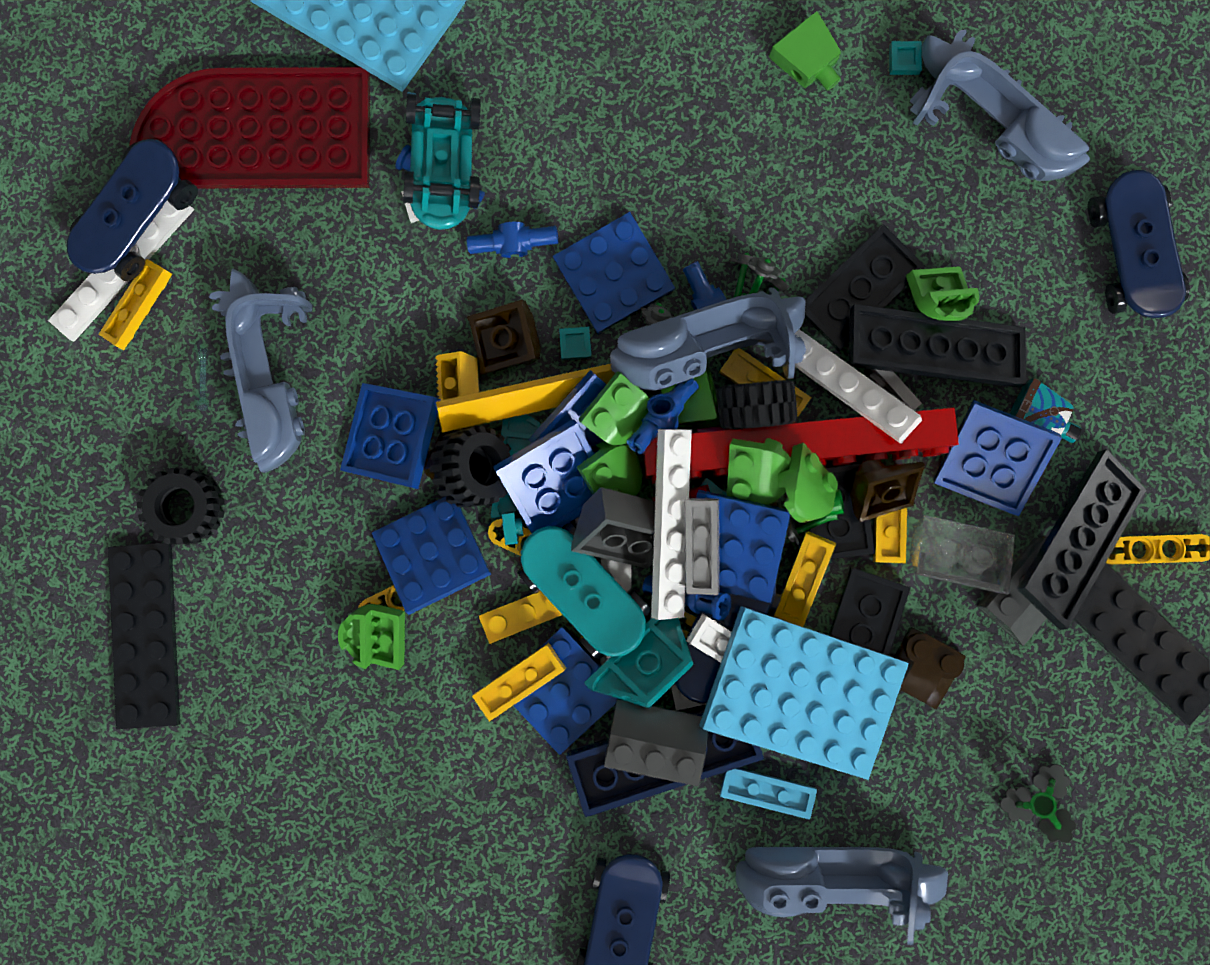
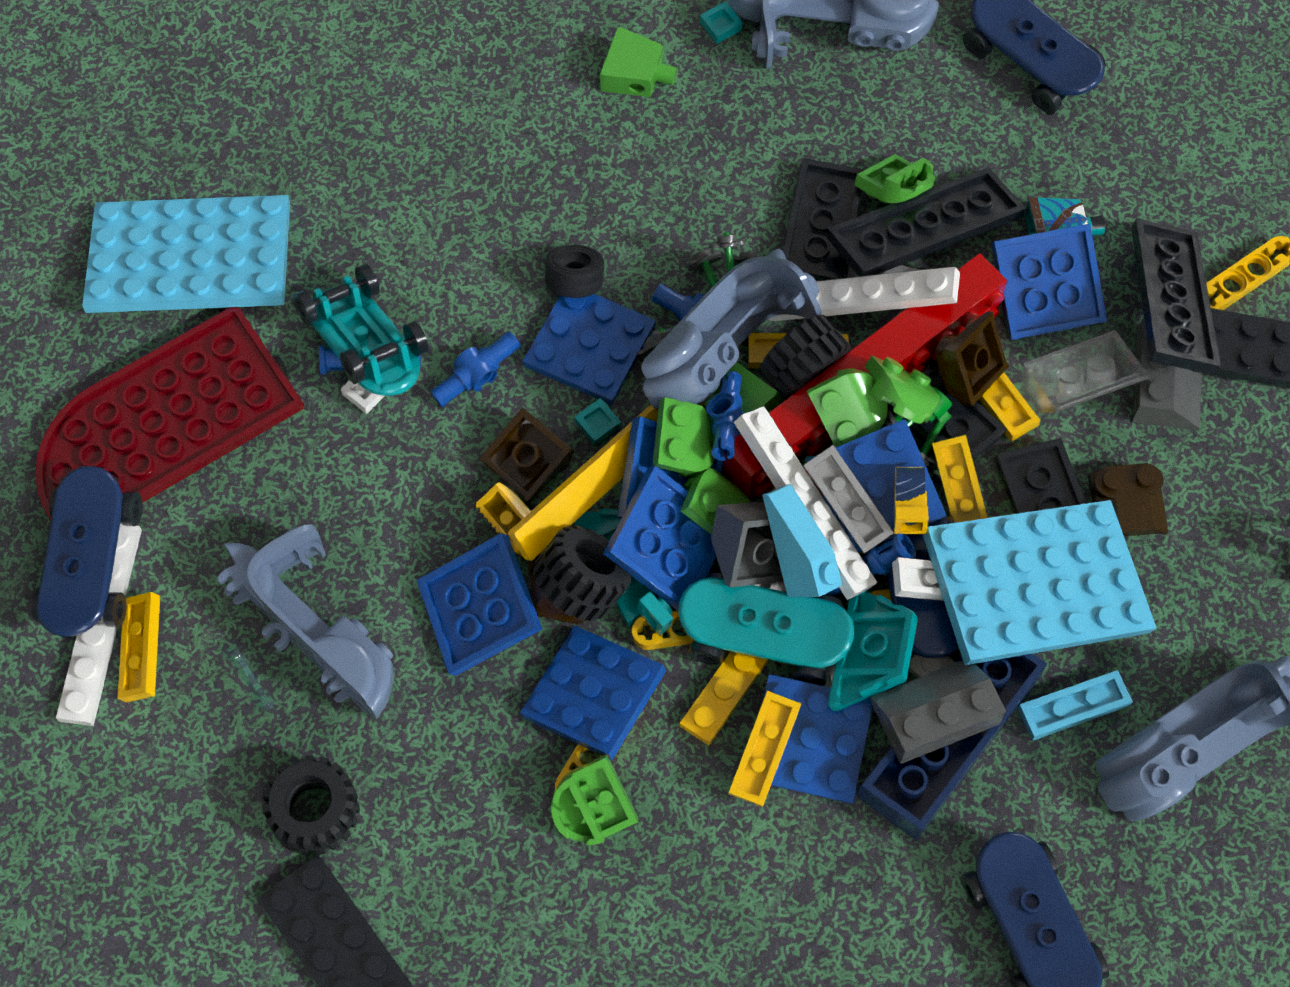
camera: 35 degrees left, 20 degrees down
(641, 558) = (801, 548): none -> medium azure slope
(647, 196) = (574, 271): none -> black tyre
(747, 579) = (910, 501): none -> leg

